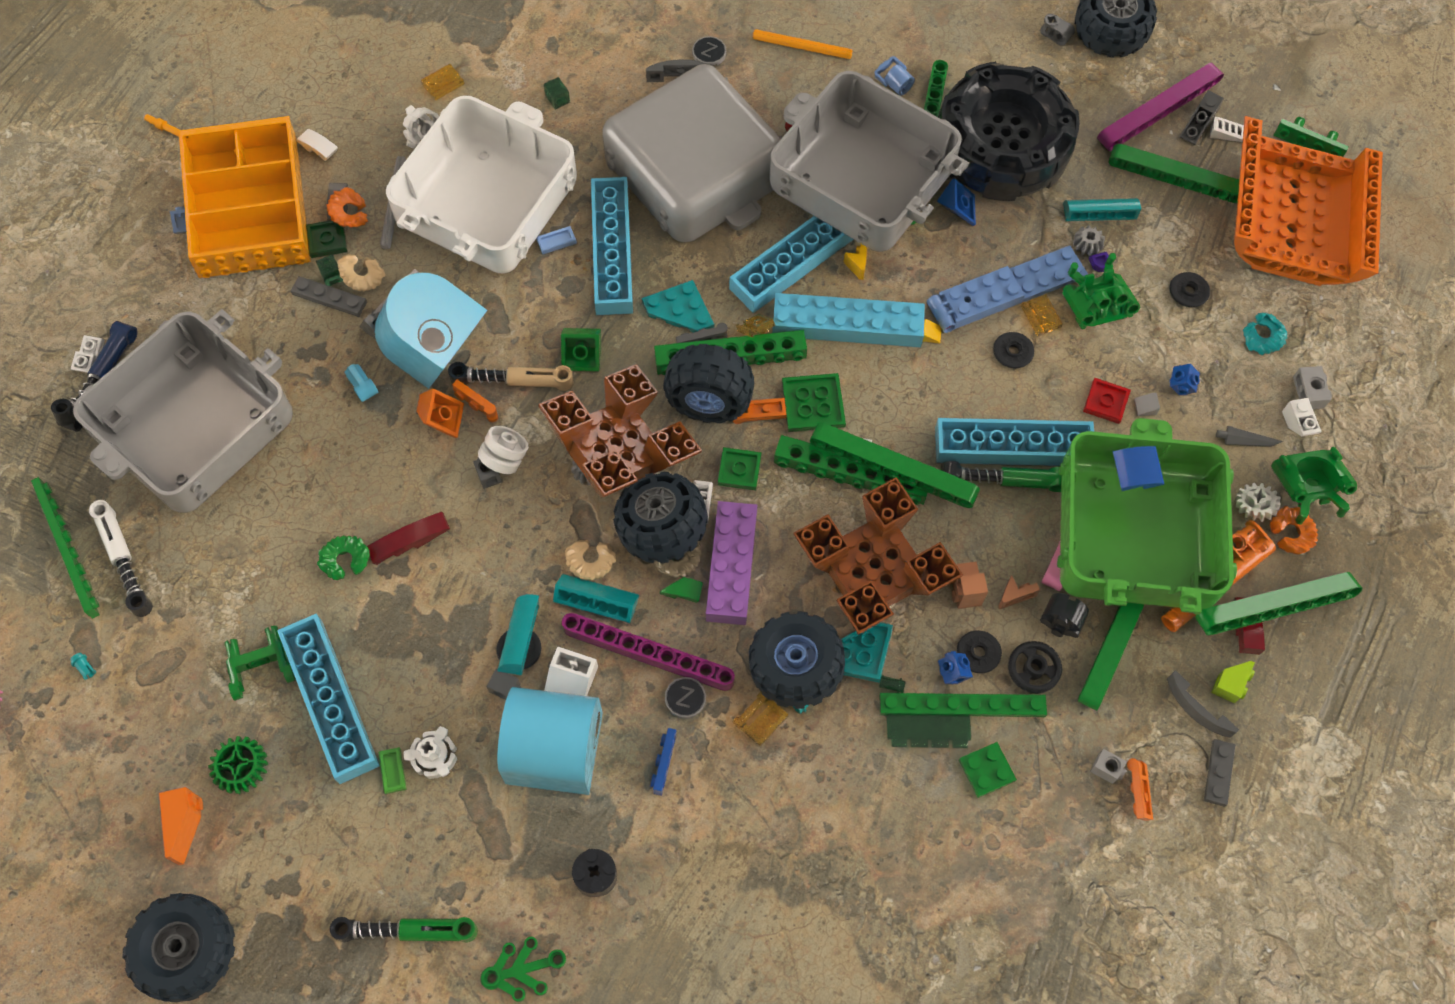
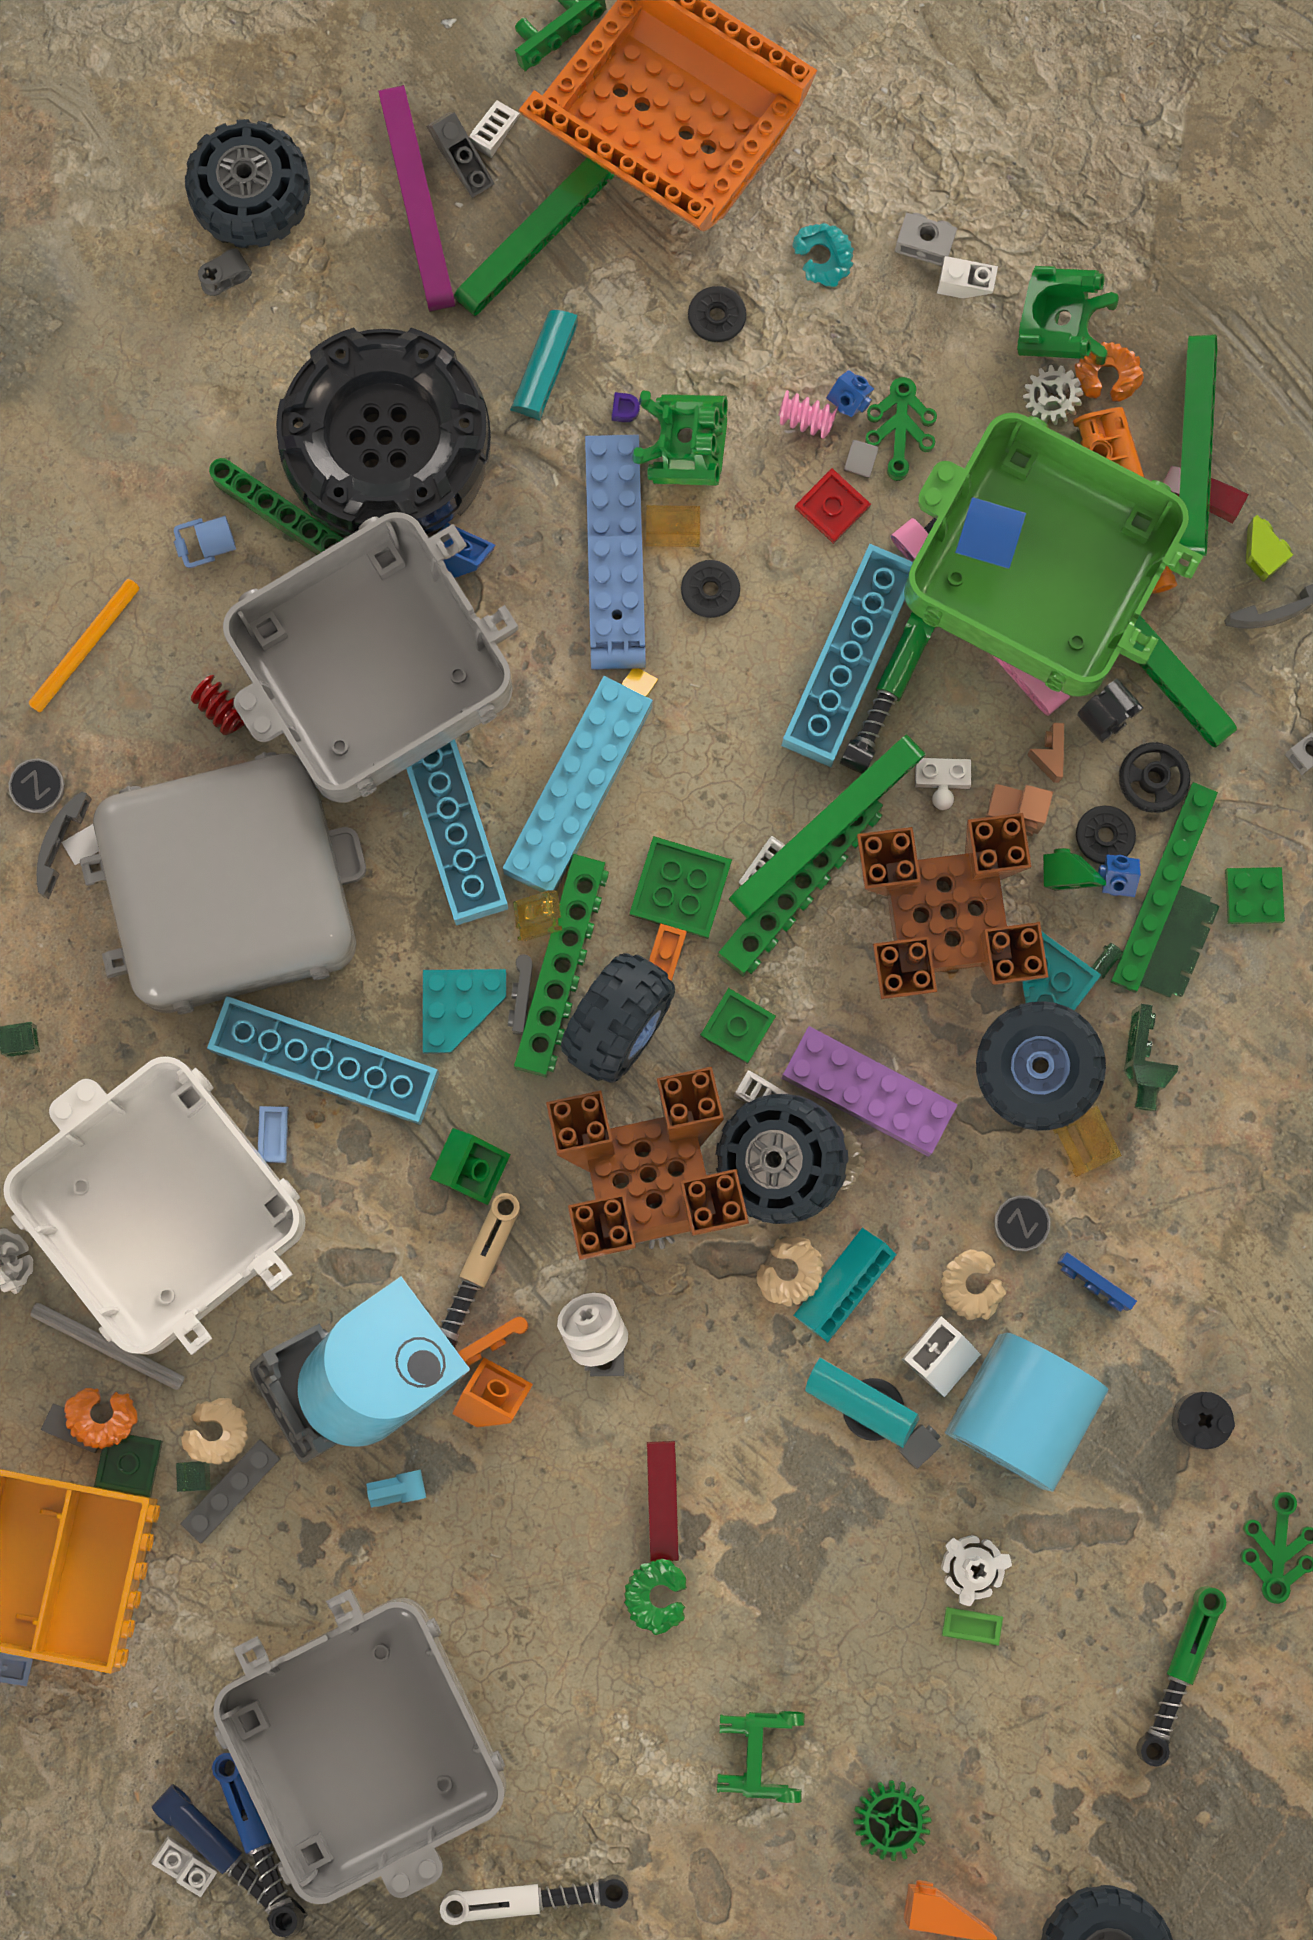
camera: 70 degrees left, 15 degrees up
(328, 699) = (850, 1677): medium azure brick -> none
(619, 668) = (955, 1291): none -> tan piece
(653, 659) = (956, 1237): magenta beam -> none
(685, 589) = (878, 1167): green slope -> none
(824, 733) = (1145, 1075): none -> clear green plate
(857, 261) = (493, 735): yellow slope -> none
(940, 632) = (1069, 871): none -> green slope
(965, 531) = (943, 775): none -> white plate
(1089, 240) = (599, 403): light grey gear -> none
(1155, 360) = (806, 415): none -> bright pink piece
(1185, 419) = (901, 422): none -> green plant
(1240, 437) = (953, 365): dark grey bar -> none

